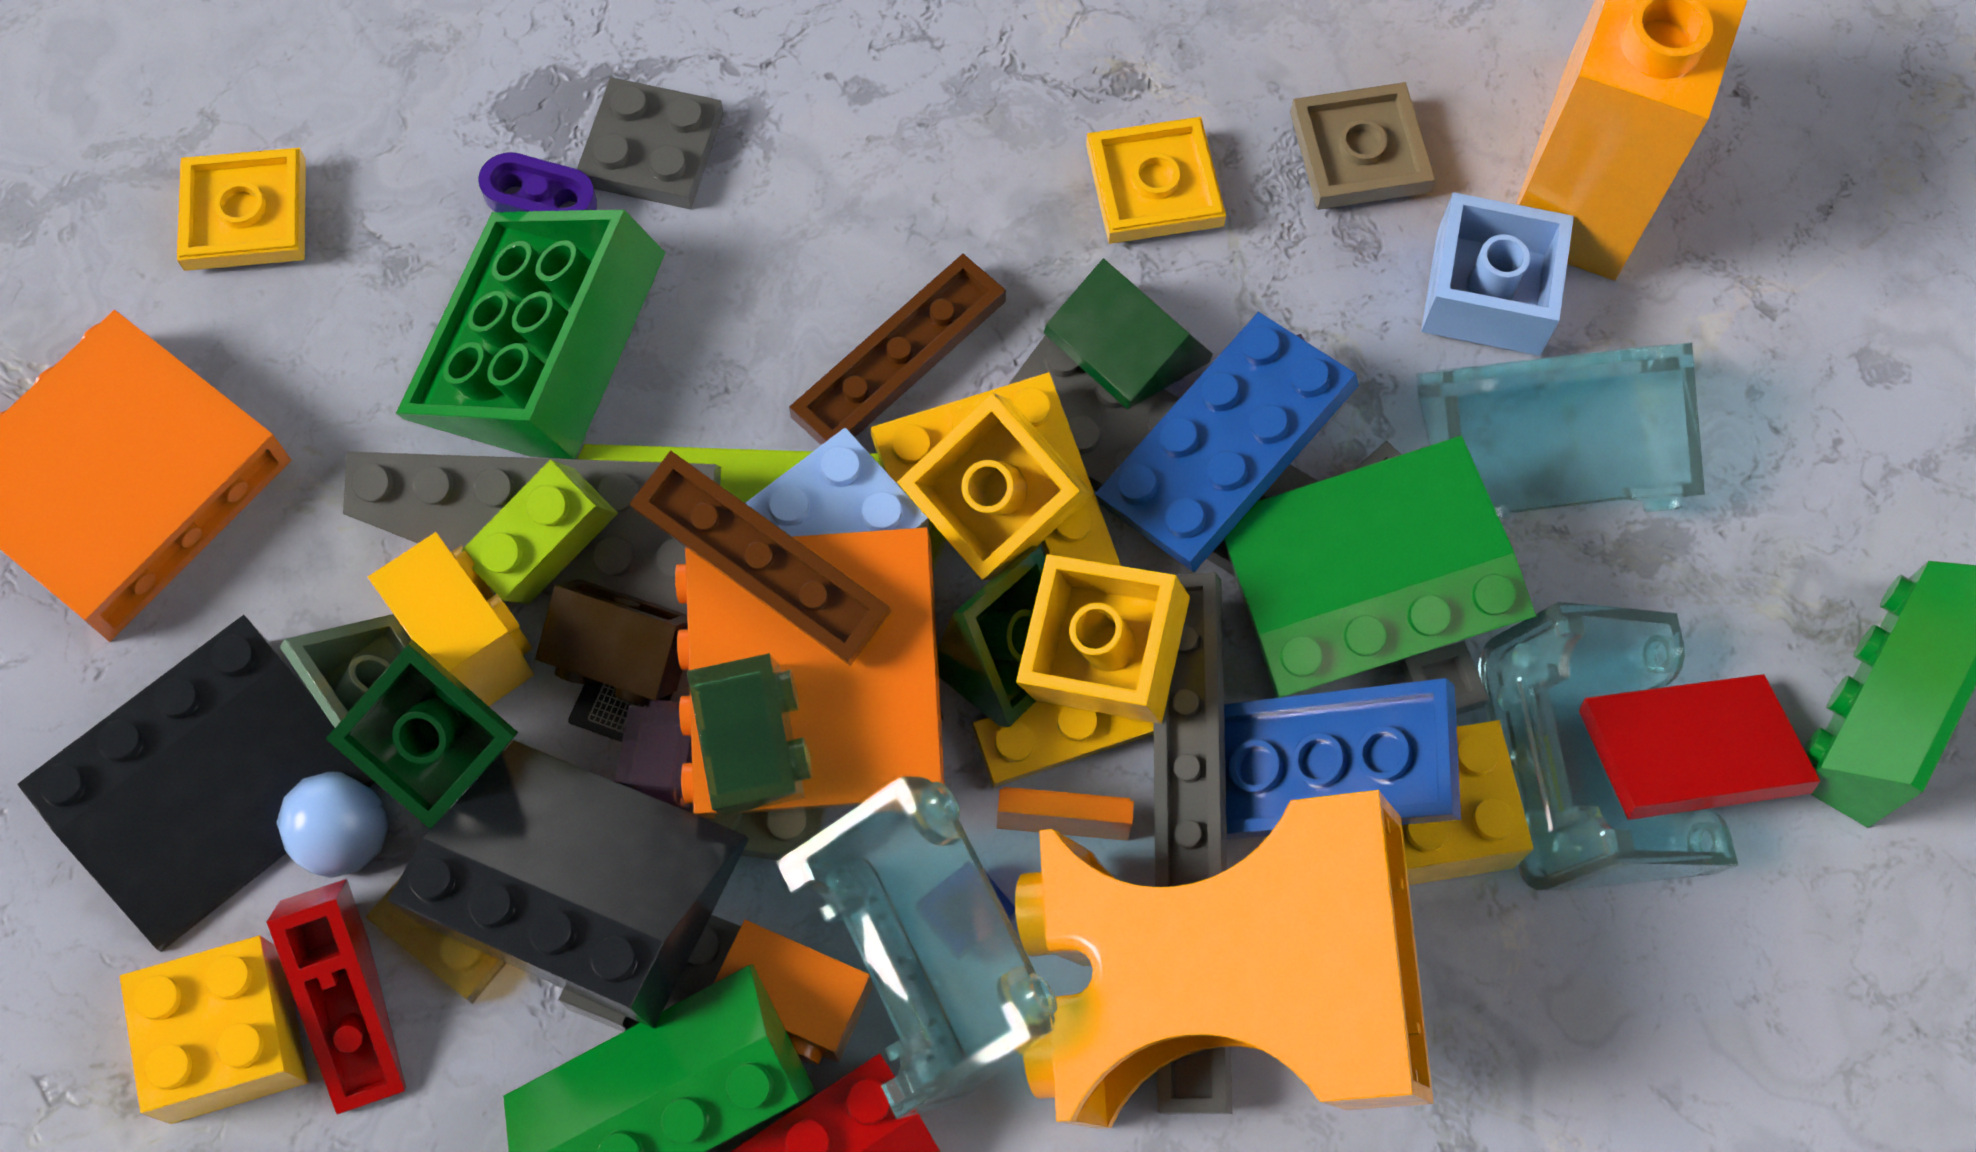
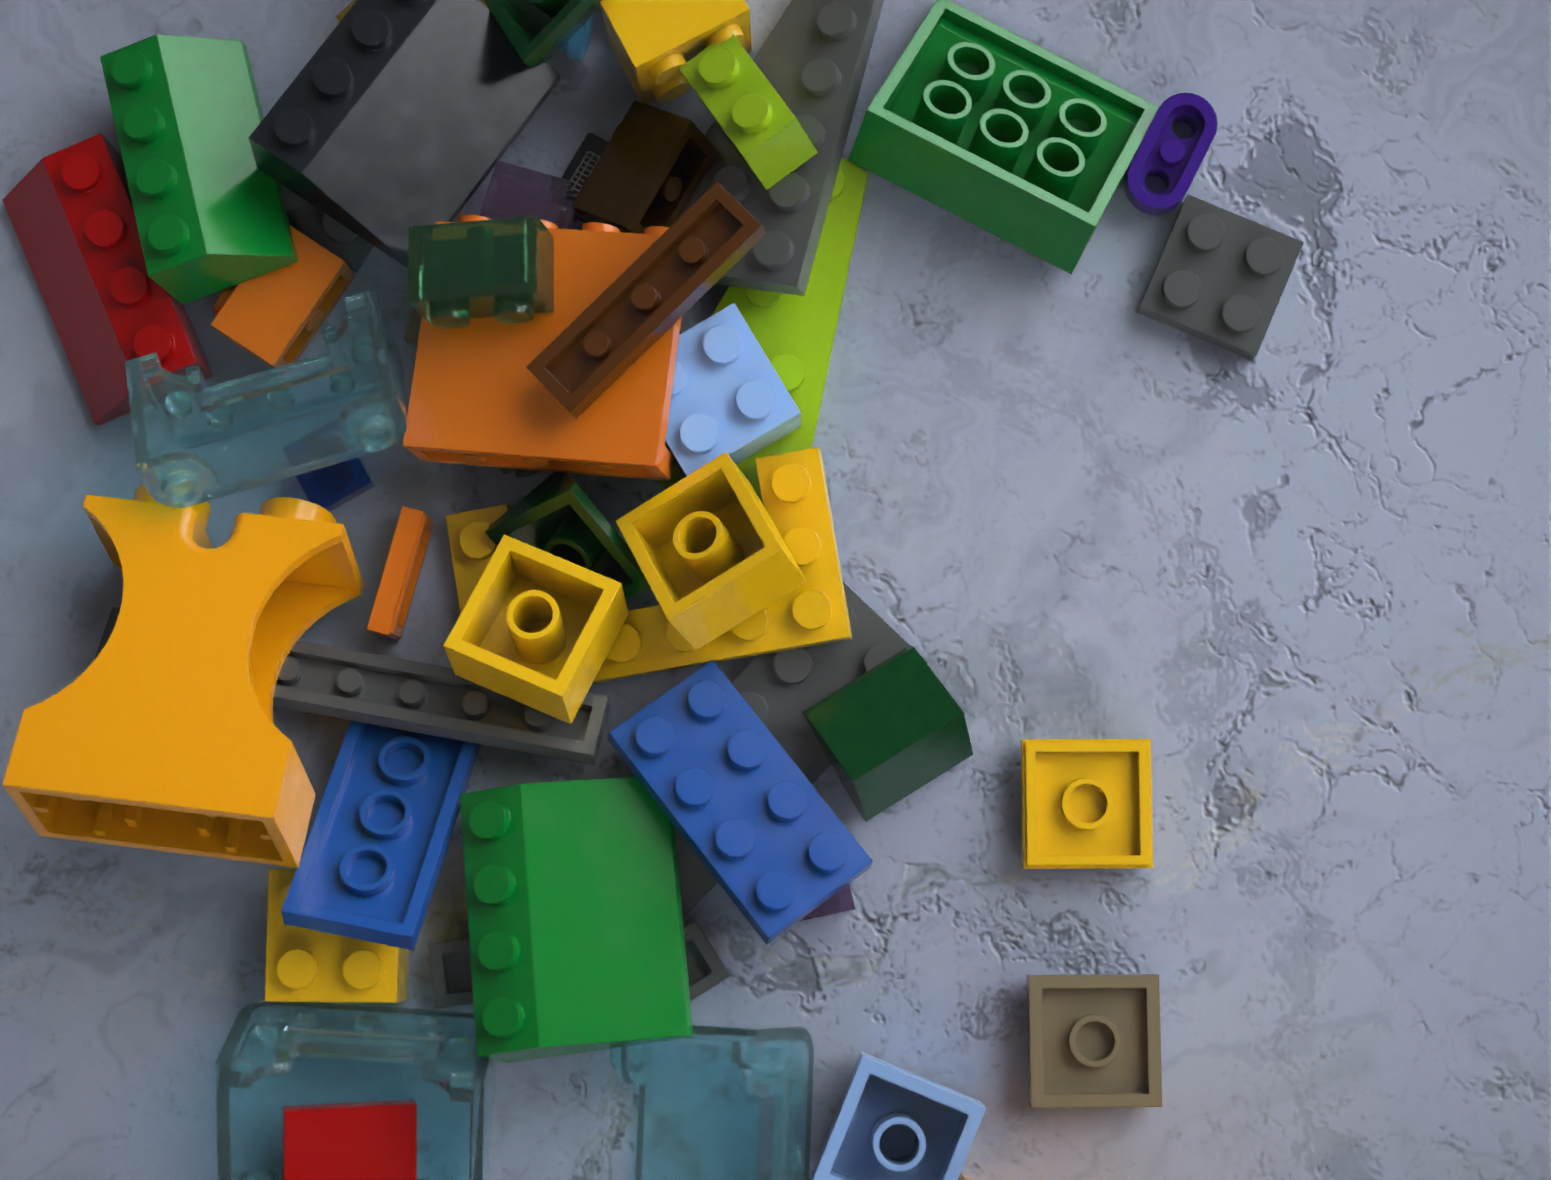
camera: 105 degrees right, 15 degrees up
(899, 352) = (919, 497): reddish brown plate -> none

